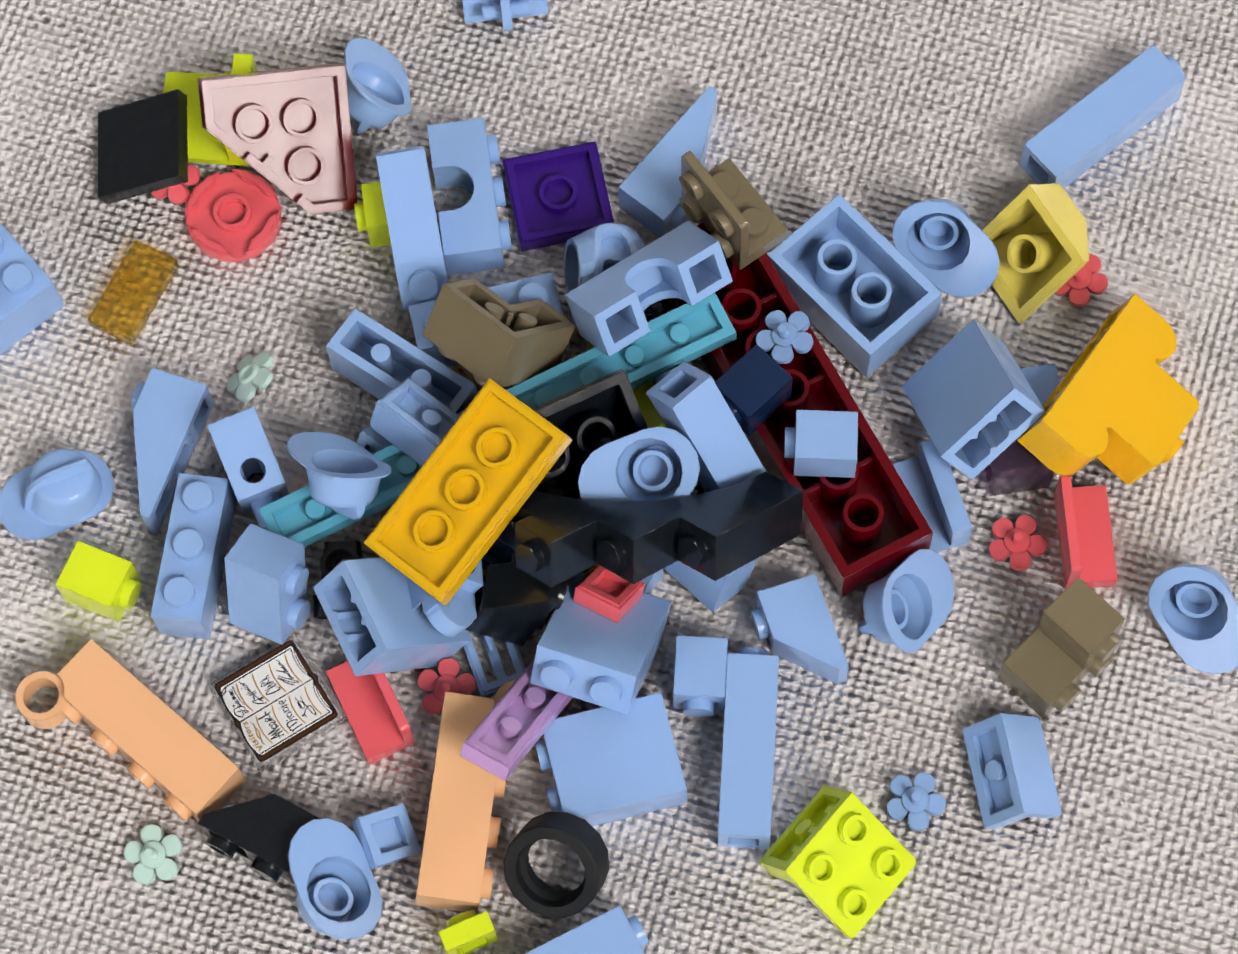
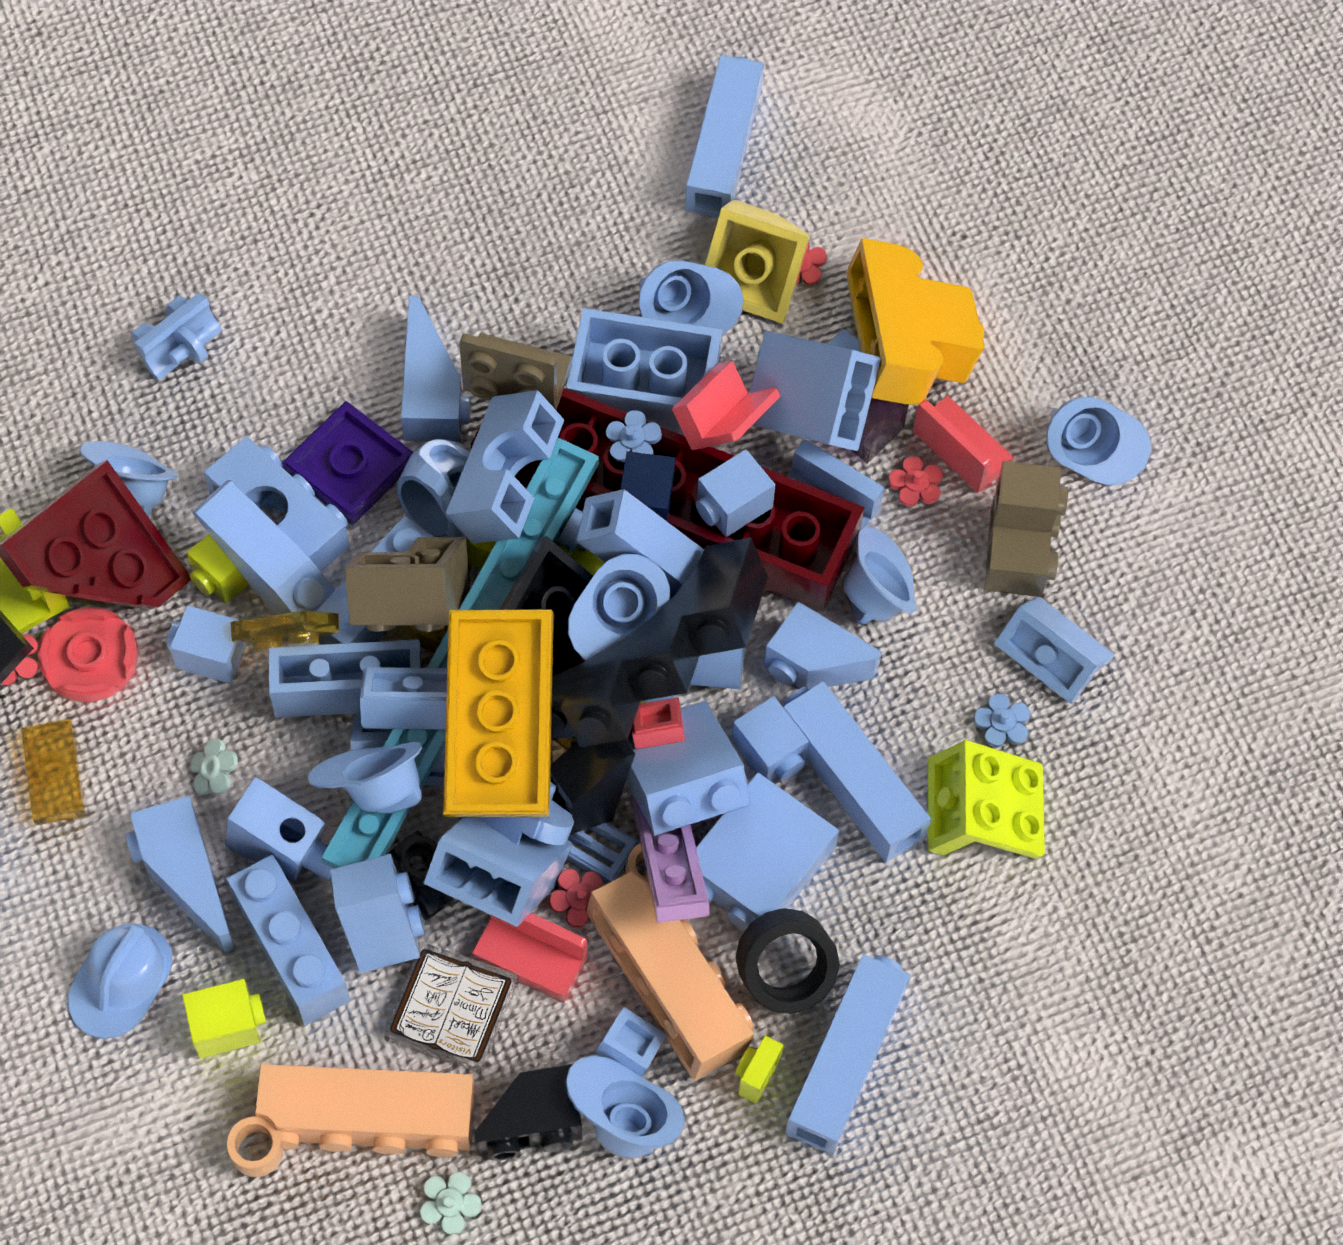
camera: 45 degrees left, 5 degrees down
(324, 271) = (204, 645): none -> light blue brick
(378, 303) = (298, 628): none -> clear yellow plate
(878, 360) = (720, 408): none -> coral panel

